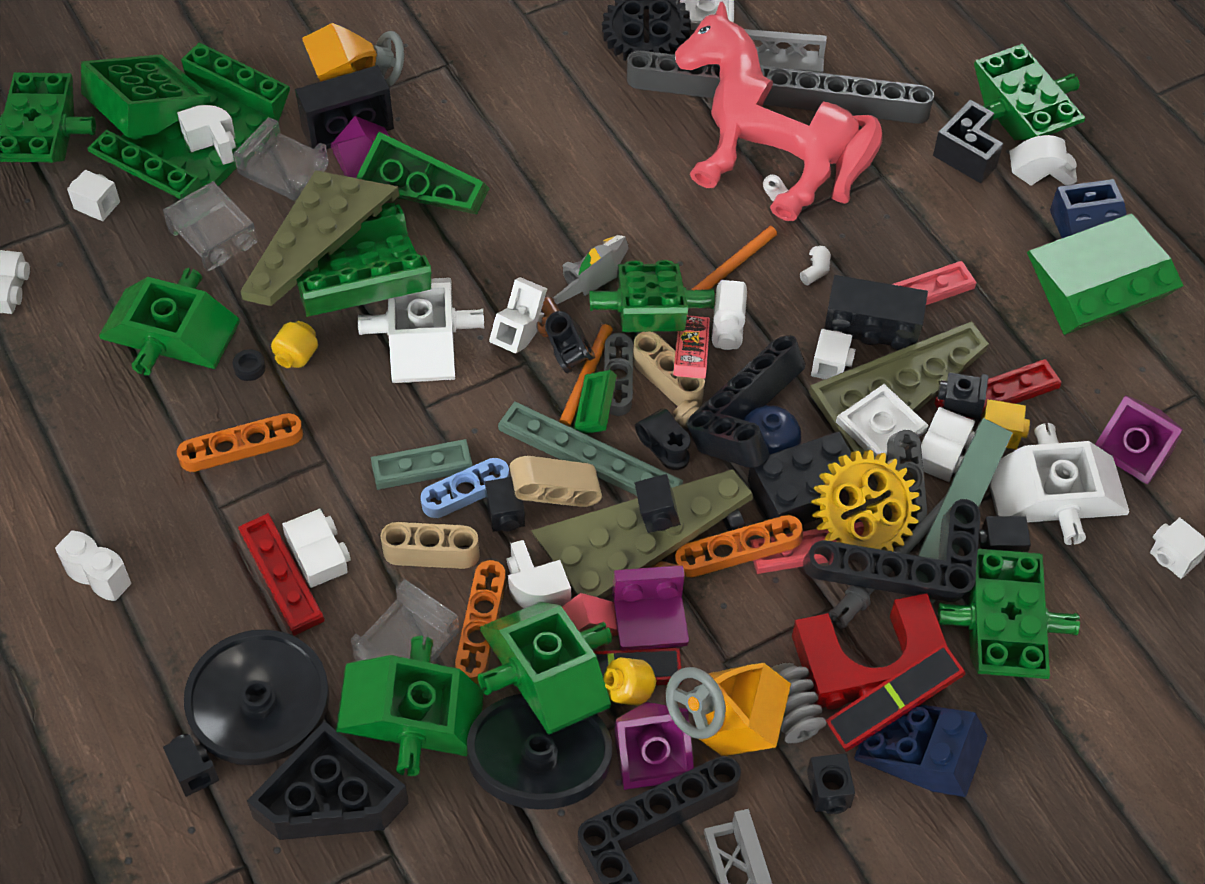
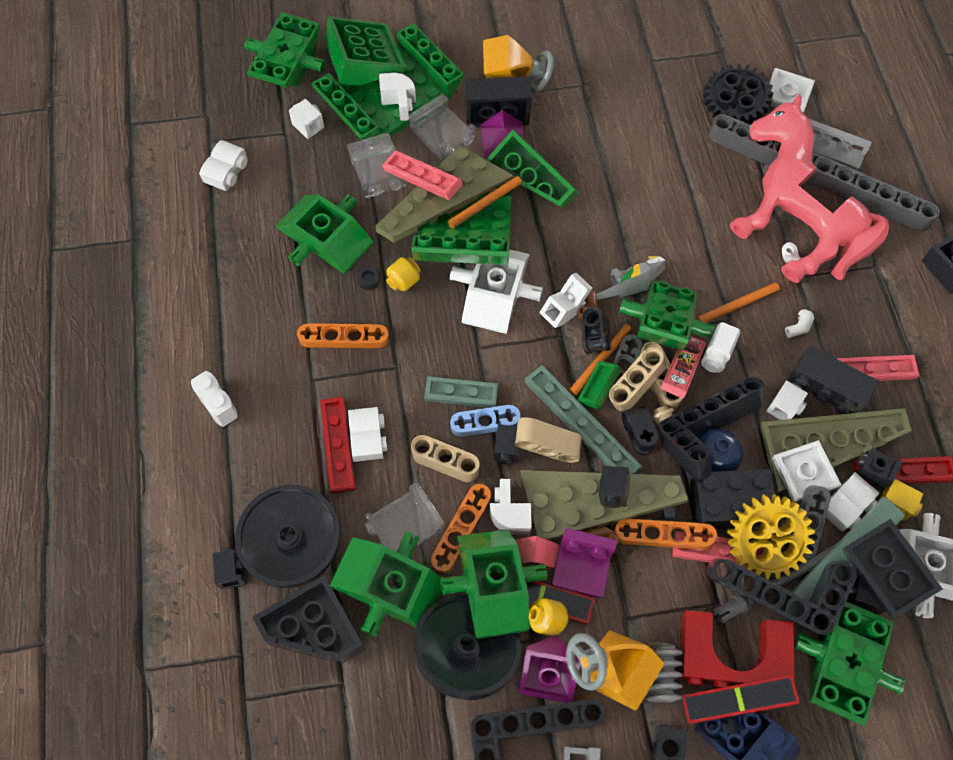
camera: 20 degrees right, 10 degrees up
(280, 215) = (422, 175): none -> coral tile
(372, 227) = (484, 202): none -> orange bar
(641, 363) = (642, 368): none -> tan beam
(1016, 490) = (892, 569): none -> black brick

